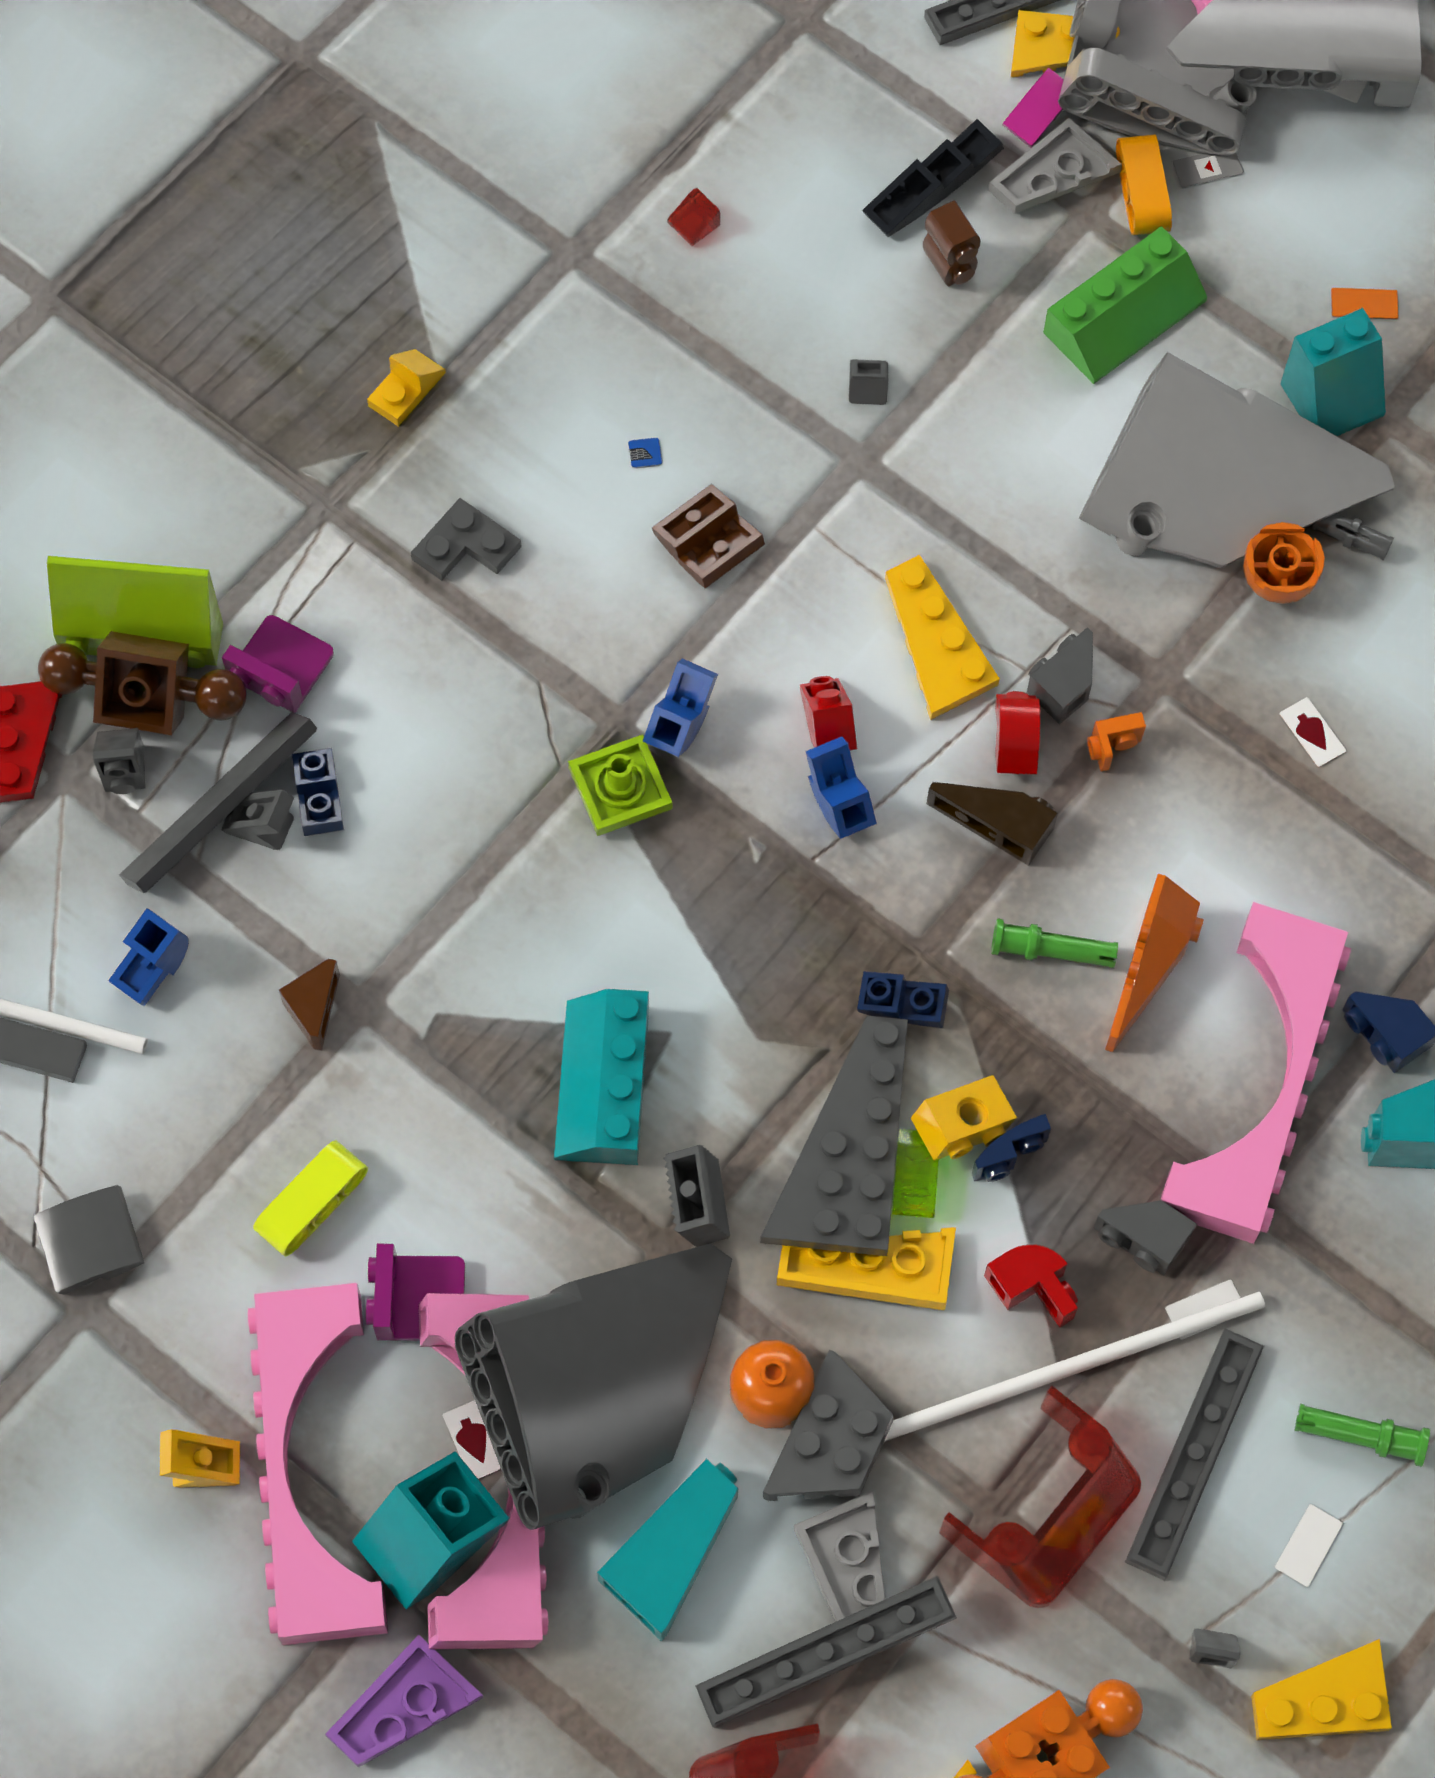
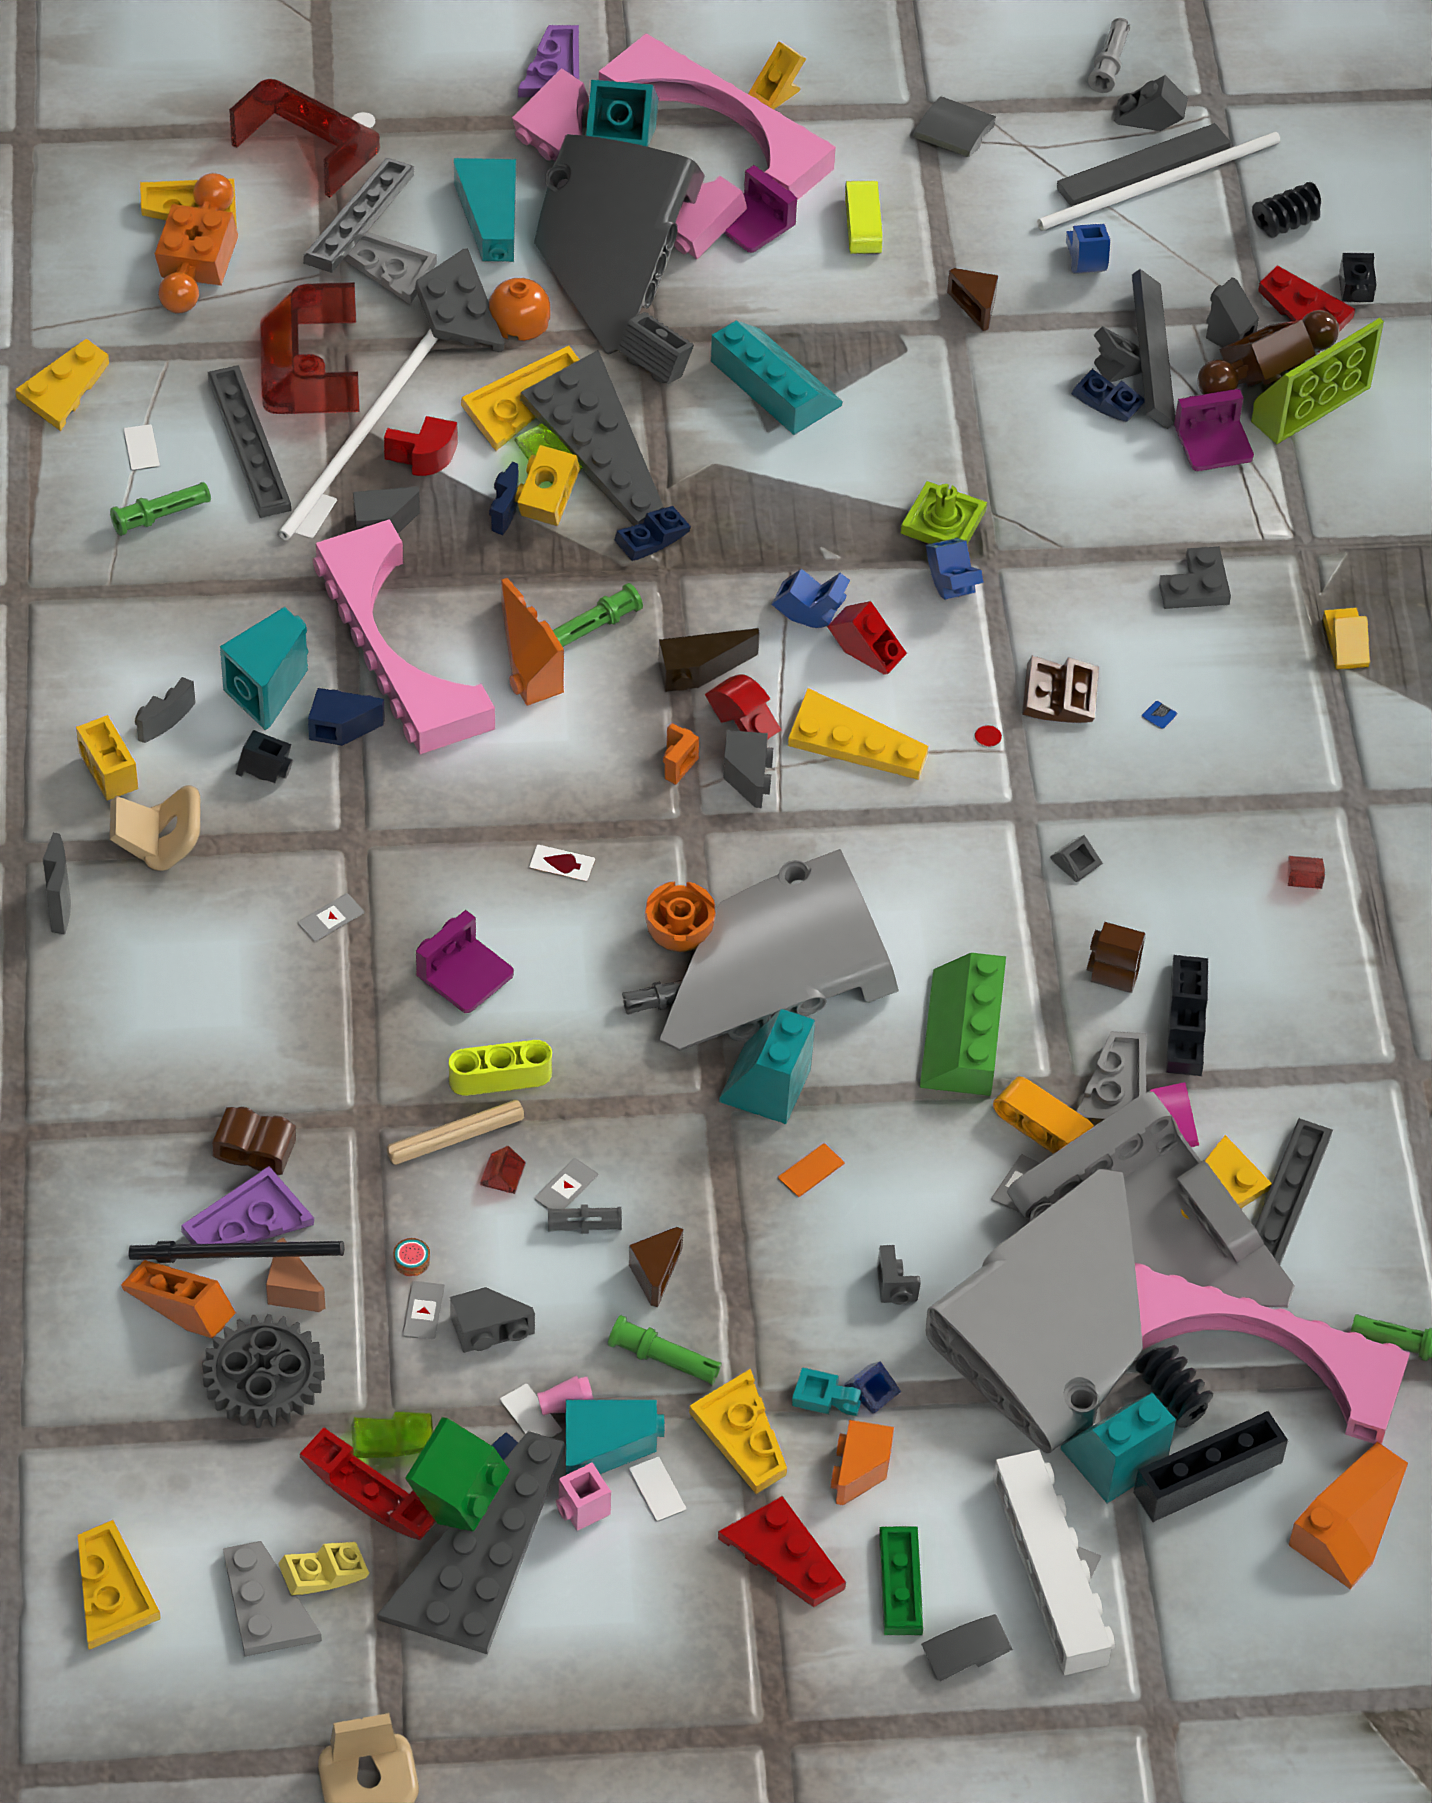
camera: 135 degrees right, 15 degrees down
(814, 551) = (988, 735): none -> red sticker
(1214, 1648) = (149, 358): dark grey slope -> none
(1399, 157) = (892, 1283): none -> dark grey bracket

